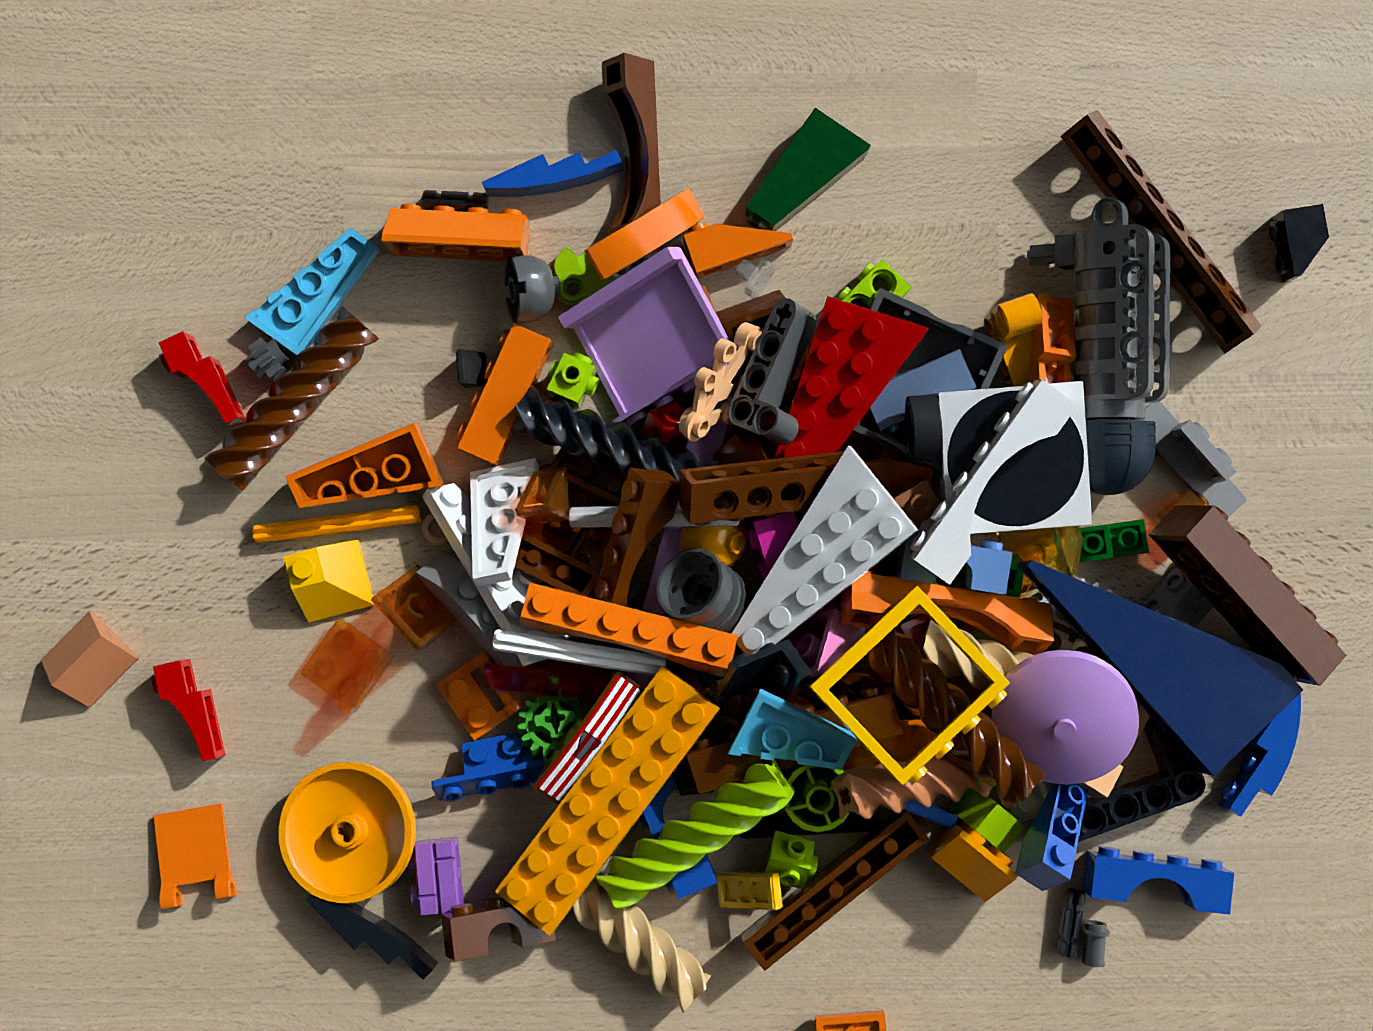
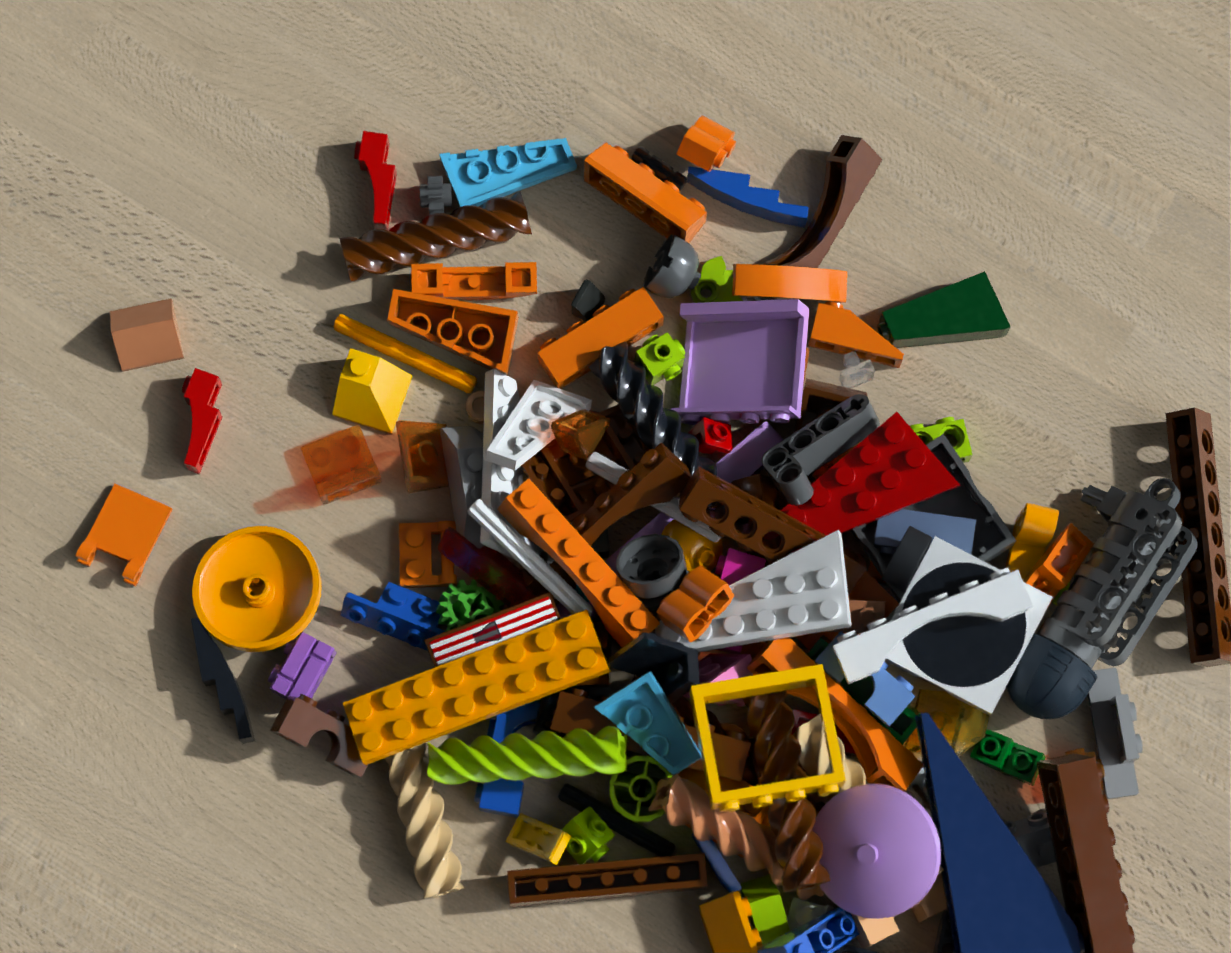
camera: 30 degrees right, 10 degrees down
(355, 417) = (475, 283): none -> orange slope
(484, 150) = (707, 144): none -> orange brick
(697, 419) = (739, 442): light nougat plant -> none
(758, 598) = (695, 603): none -> orange brick

